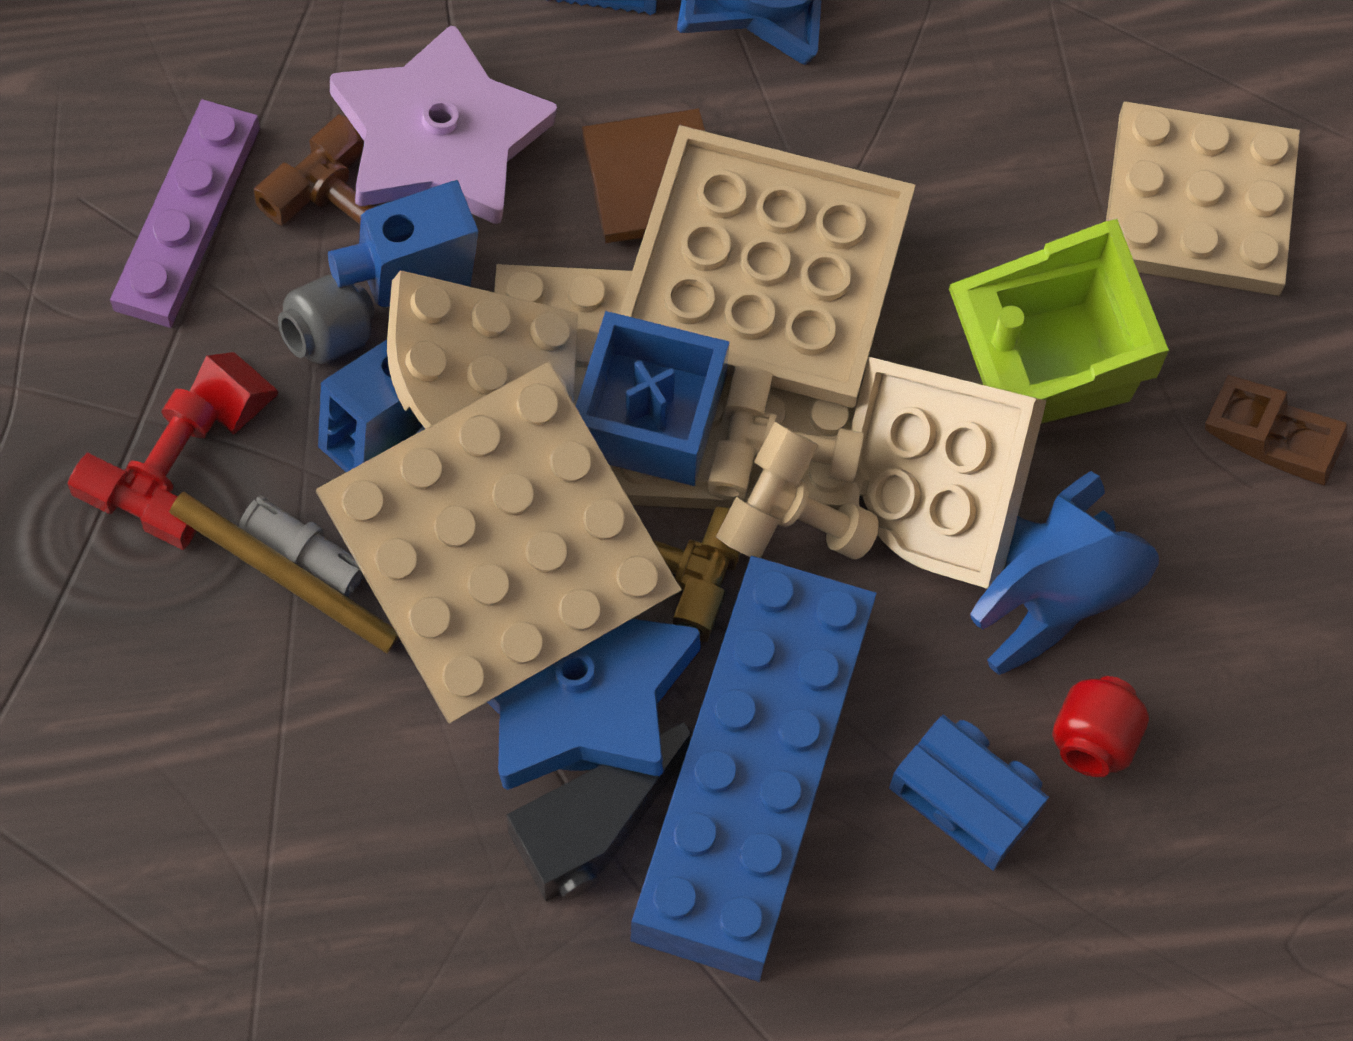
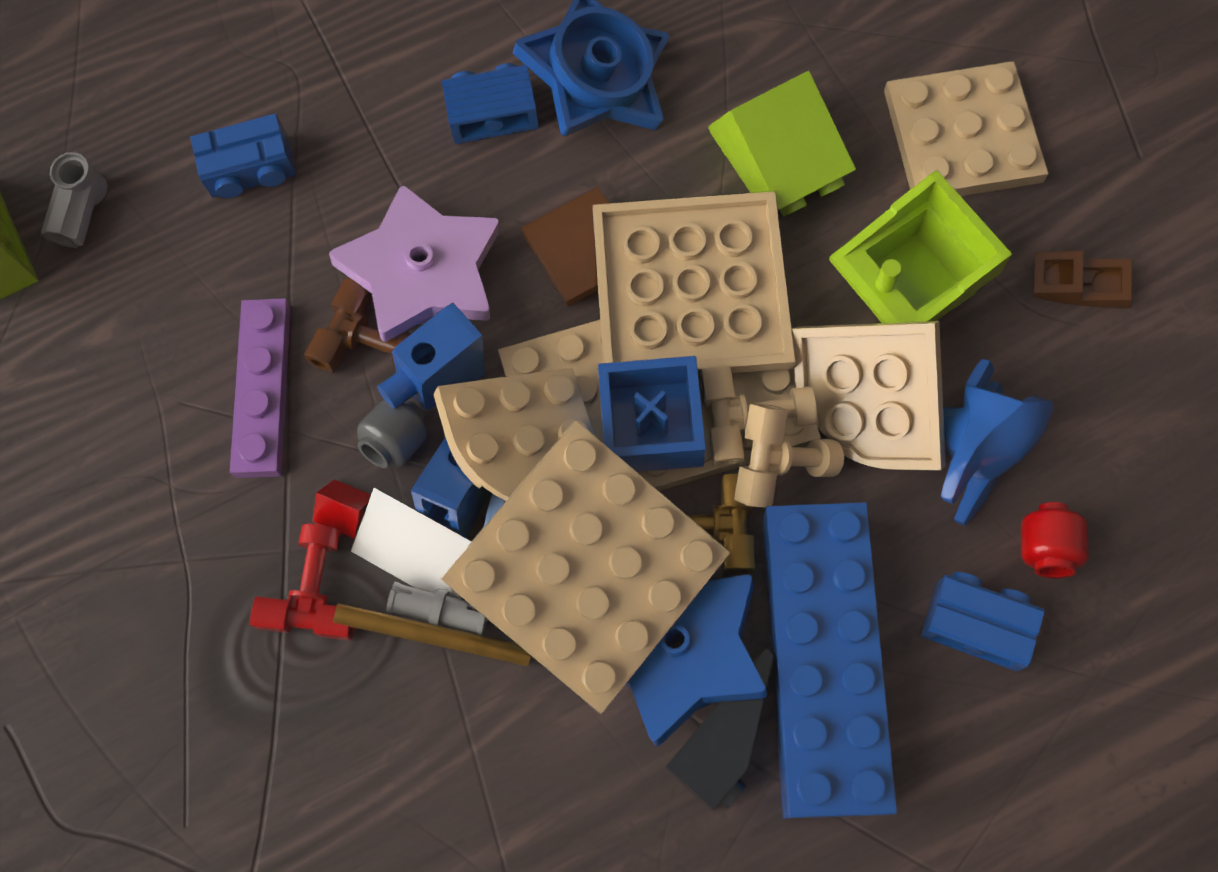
camera: 10 degrees left, 5 degrees up
(290, 453) = (407, 543): none -> white sticker
(955, 133) = (785, 144): none -> lime slope

